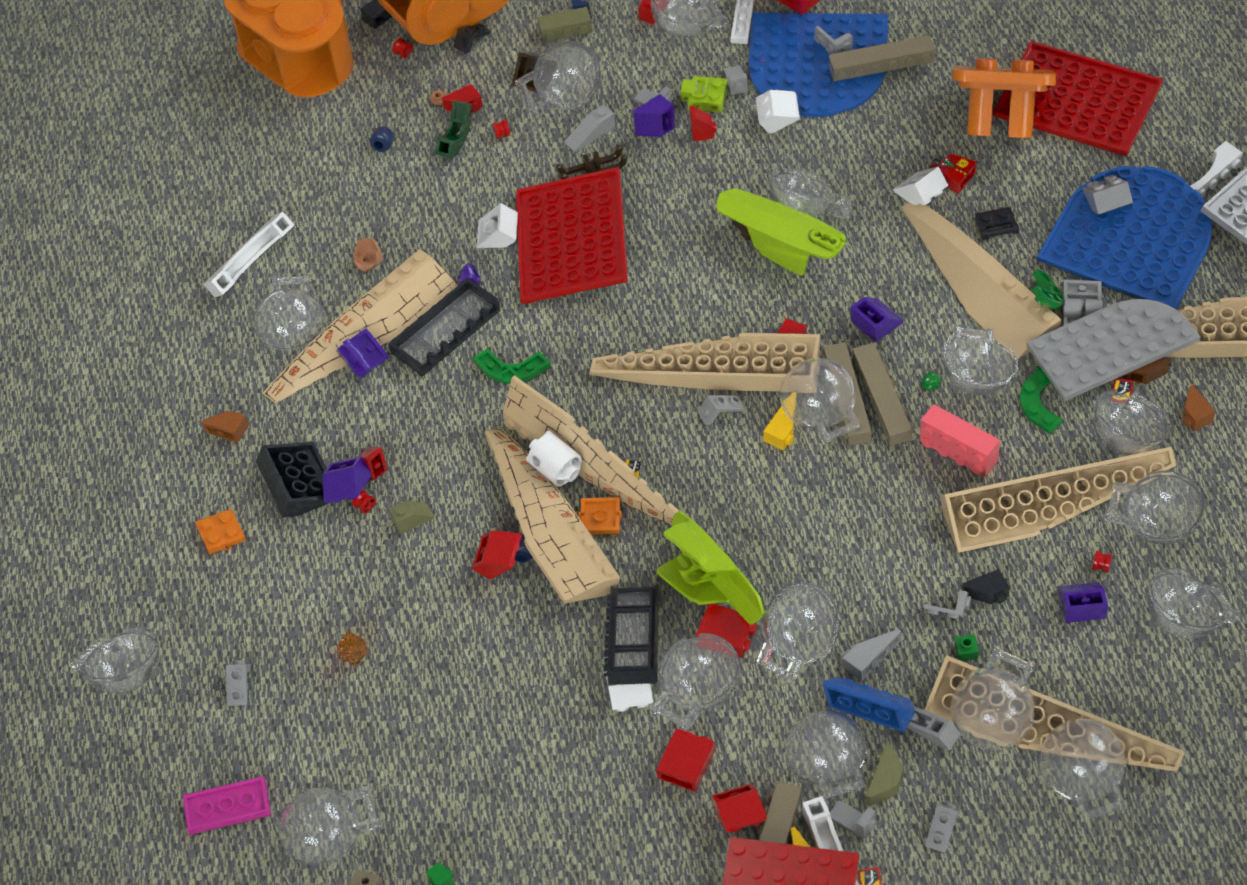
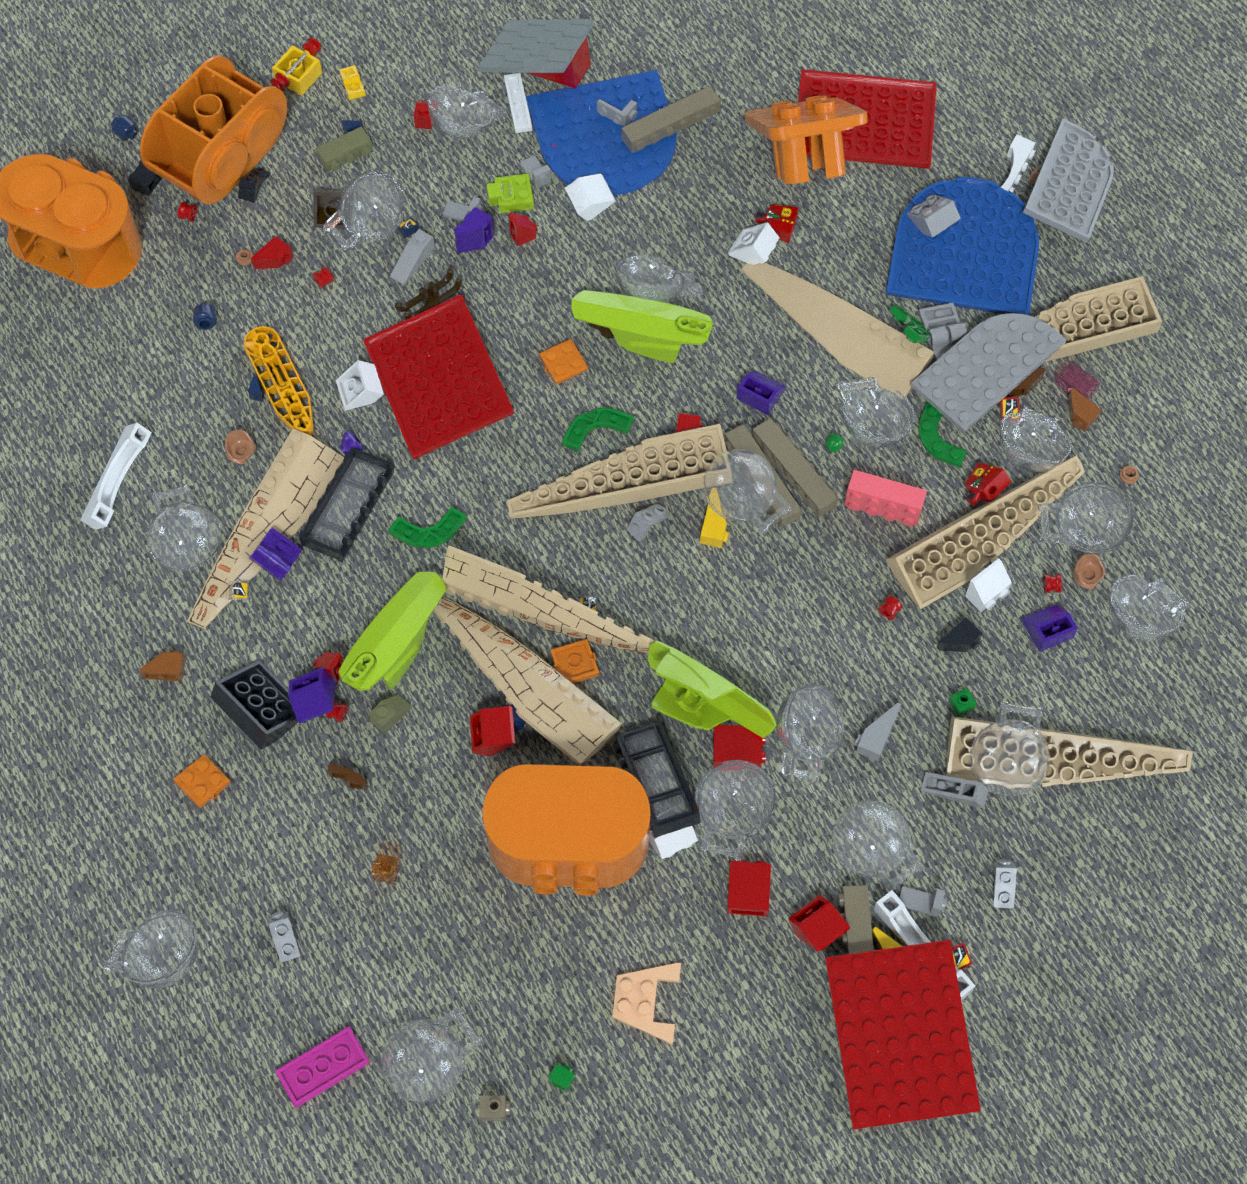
camera: 25 degrees left, 10 degrees up
(318, 377) = (238, 590): none -> slope
(352, 562) = (352, 780): none -> reddish brown slope
(401, 210) = (254, 390): none -> dark blue slope
(421, 182) = (257, 346): none -> light orange beam
(438, 449) = (394, 635): none -> lime piece
(457, 131) = (279, 290): dark green arch -> none
(526, 649) = (567, 826): none -> orange brick
(540, 828) = (636, 1000): none -> light nougat wing
(554, 459) = (515, 619): white cylinder -> none
(596, 102) = (408, 227): none -> dark blue slope
(695, 250) = (563, 361): none -> orange plate
(707, 307) = (595, 419): none -> green plate
(869, 703) = (898, 784): blue slope -> none
(885, 777) = (937, 850): olive slope -> none
(927, 543) = (890, 607): none -> red wheel
(962, 603) = (945, 658): light grey bracket -> none
(994, 219) = (833, 261): black plate -> none
(1033, 545) = (989, 586): none -> white slope
(1067, 451) = (986, 483): none -> red torso
(1084, 764) = (1108, 788): clear windscreen -> none
(1143, 558) = (1088, 571): none -> nougat hair
(1203, 380) = (1075, 377): none -> clear pink brick
(1223, 476) = (1129, 470): none -> nougat plate

